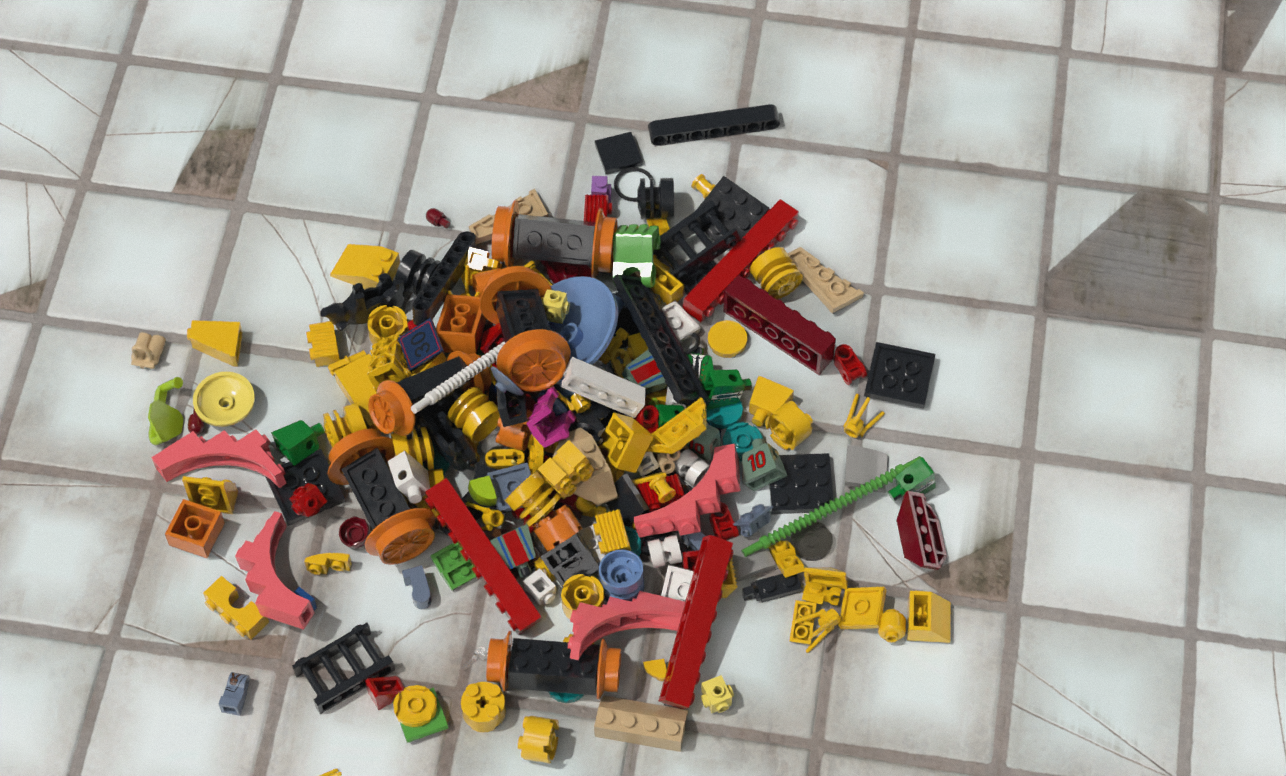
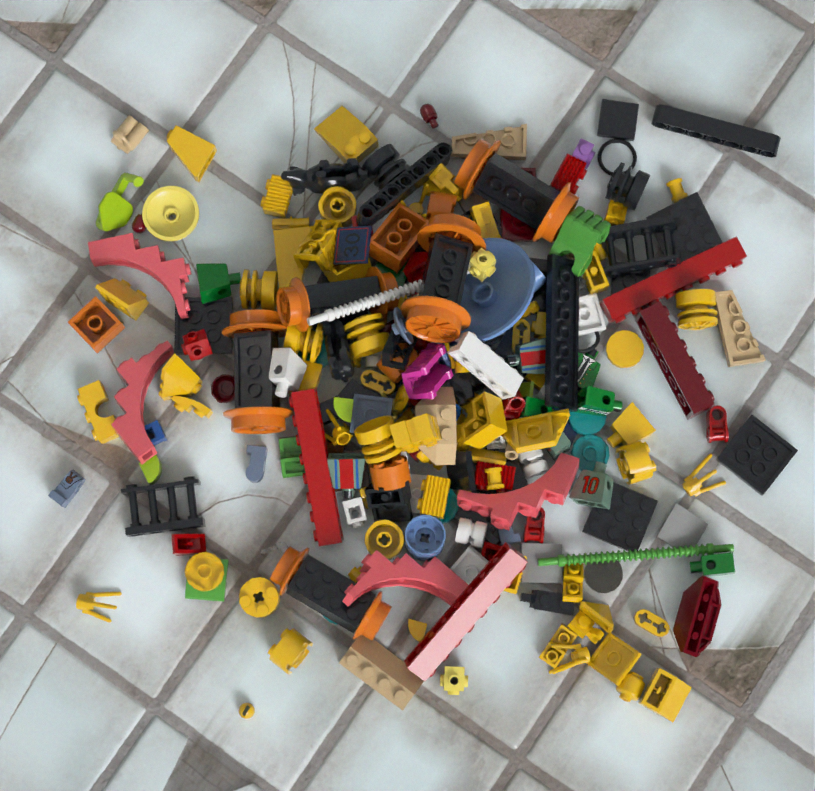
camera: 25 degrees right, 20 degrees up
(306, 535) = (178, 379): none -> yellow wedge
(313, 636) = (152, 469): none -> lime brick
(754, 520) = (564, 533): sand blue hinge -> none
(881, 563) = (654, 619): none -> yellow beam

